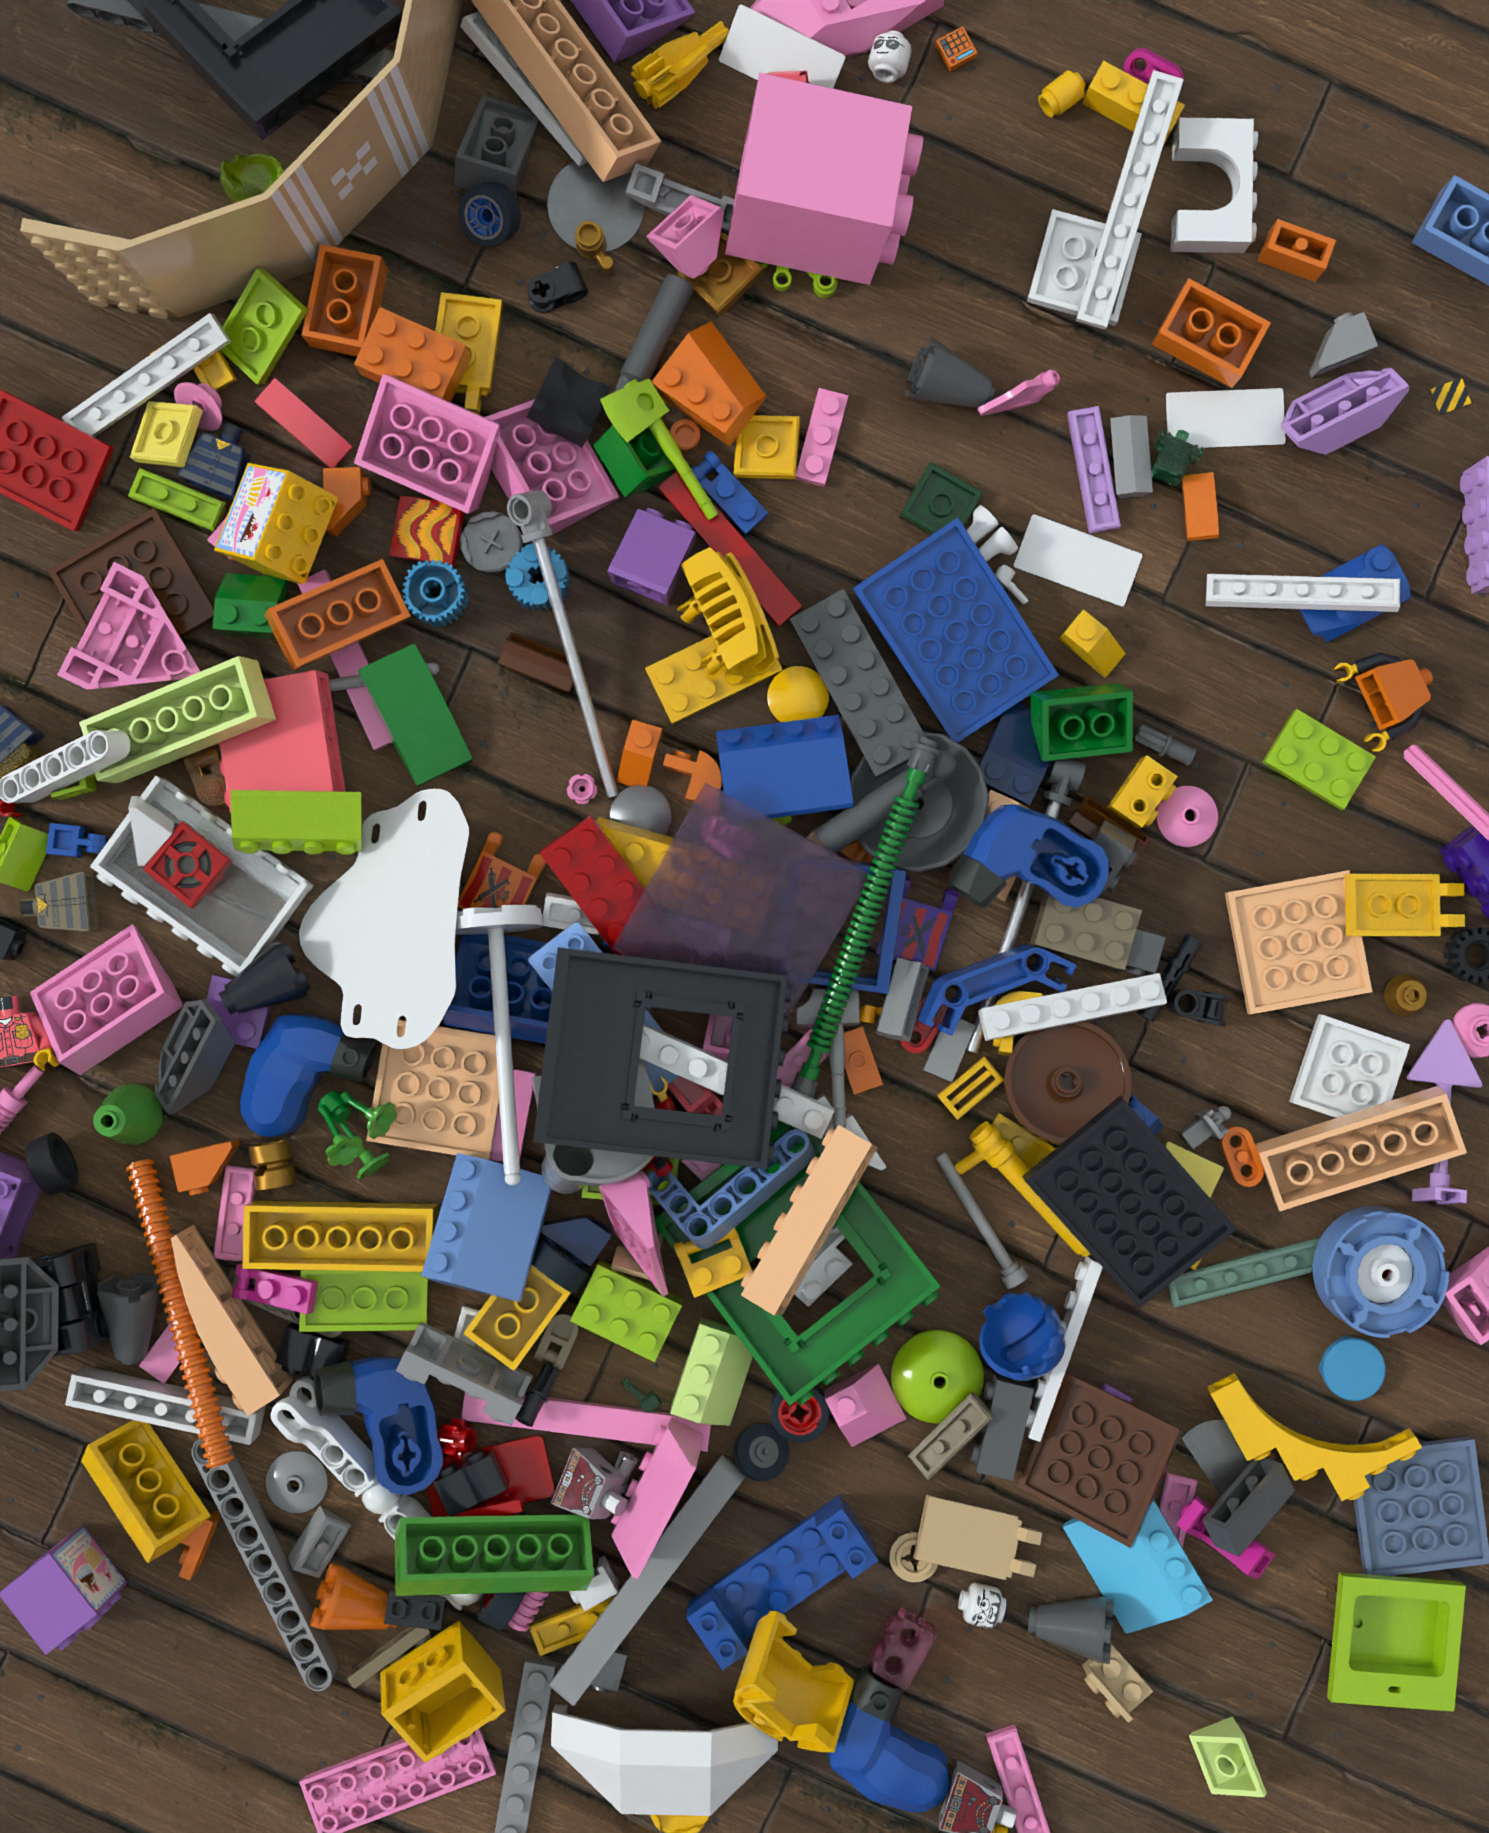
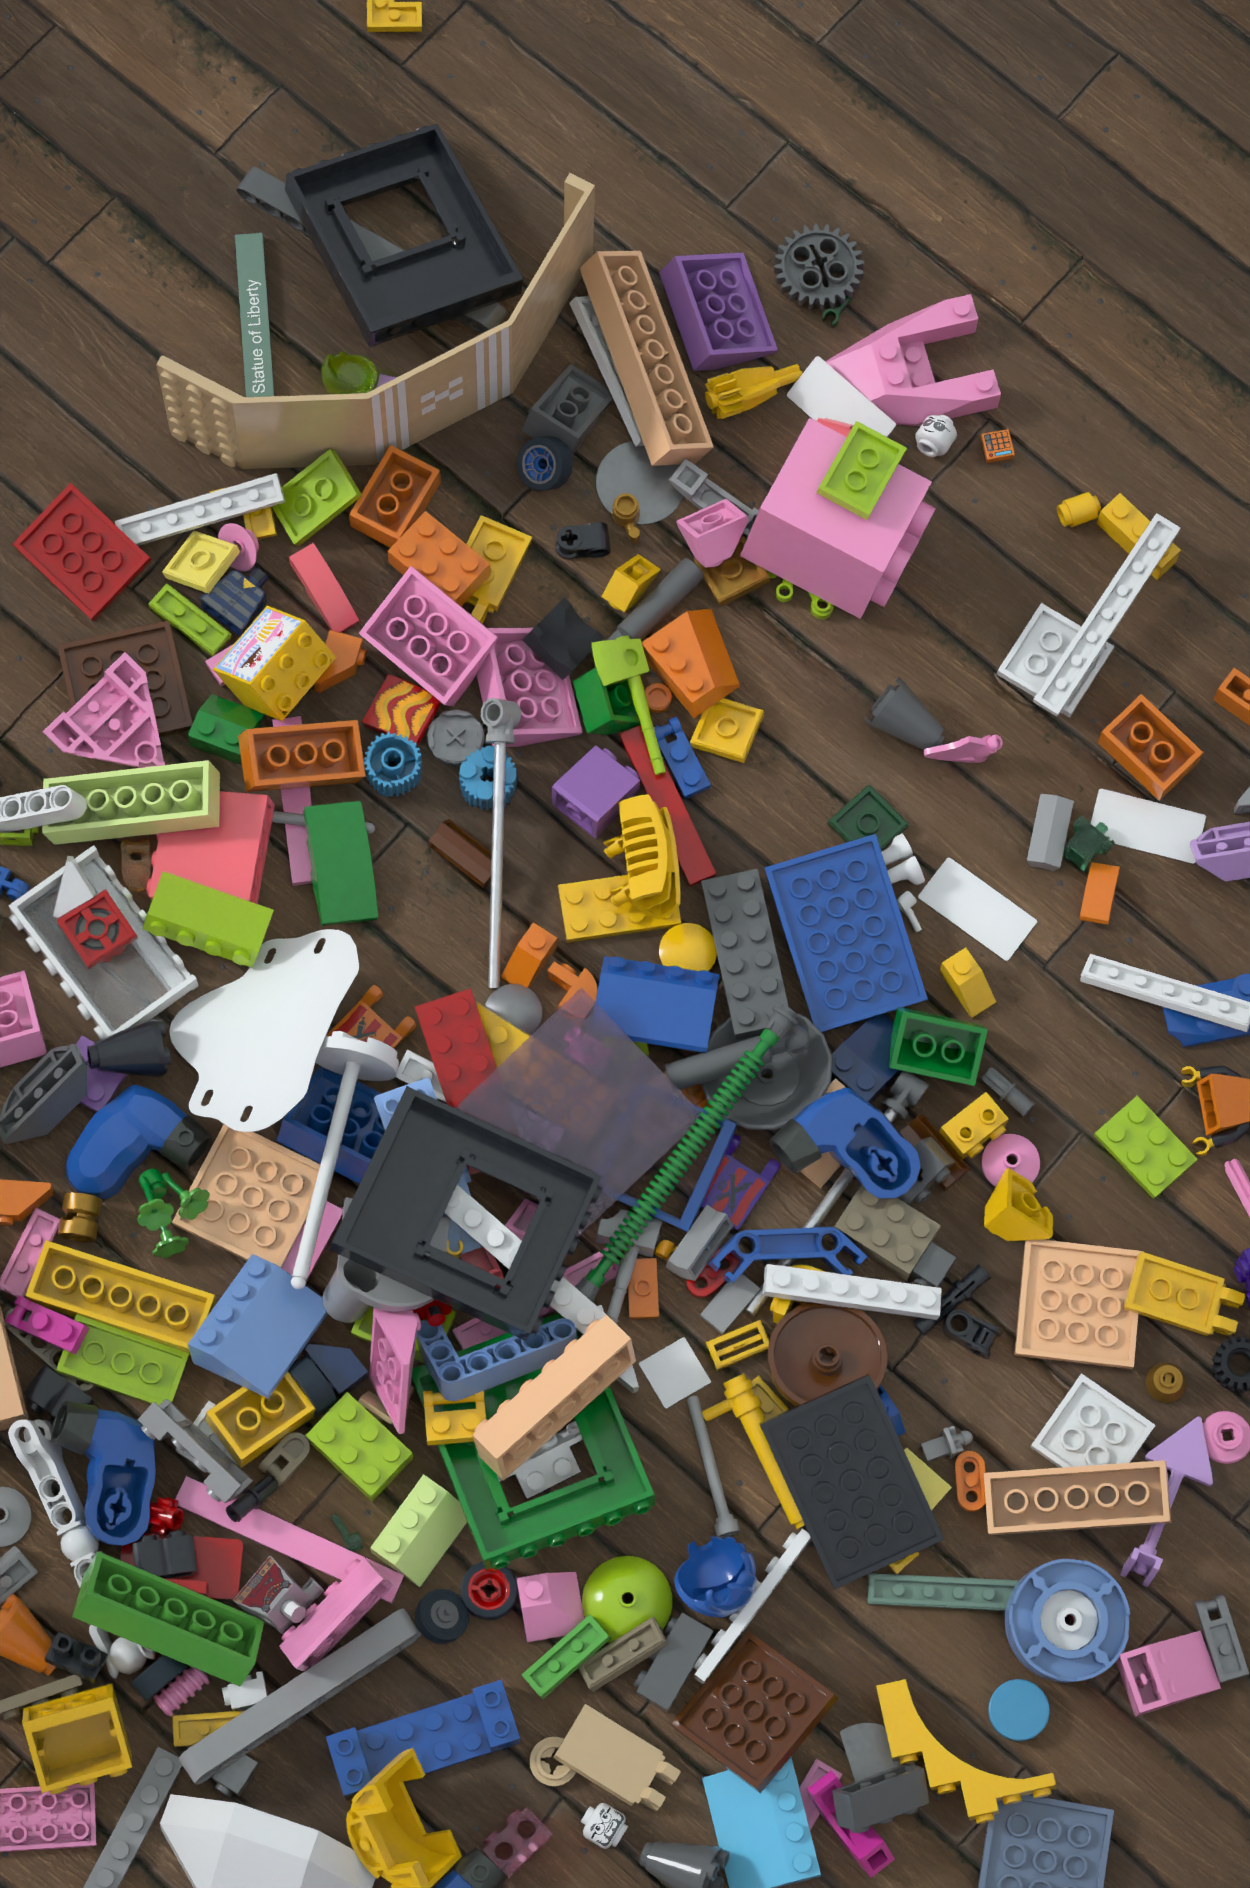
camera: 15 degrees right, 15 degrees down
(132, 139) = (254, 315): none -> sand green tile
(574, 785) = (468, 965): bright pink plate -> none
(619, 319) = (630, 582): none -> yellow slope
(821, 437) = (778, 735): bright pink plate -> none
(835, 116) = (861, 470): none -> lime plate
(895, 1454) = (566, 1656): none -> bright green plate
(914, 1133) = (674, 1372): none -> white sticker
(1093, 470) = (1014, 835): lavender tile -> none
(1153, 62) = (1167, 510): dark pink plate -> none
(1209, 869) = (1015, 1212): none -> yellow slope
(1231, 147) = (1214, 596): white arch -> none

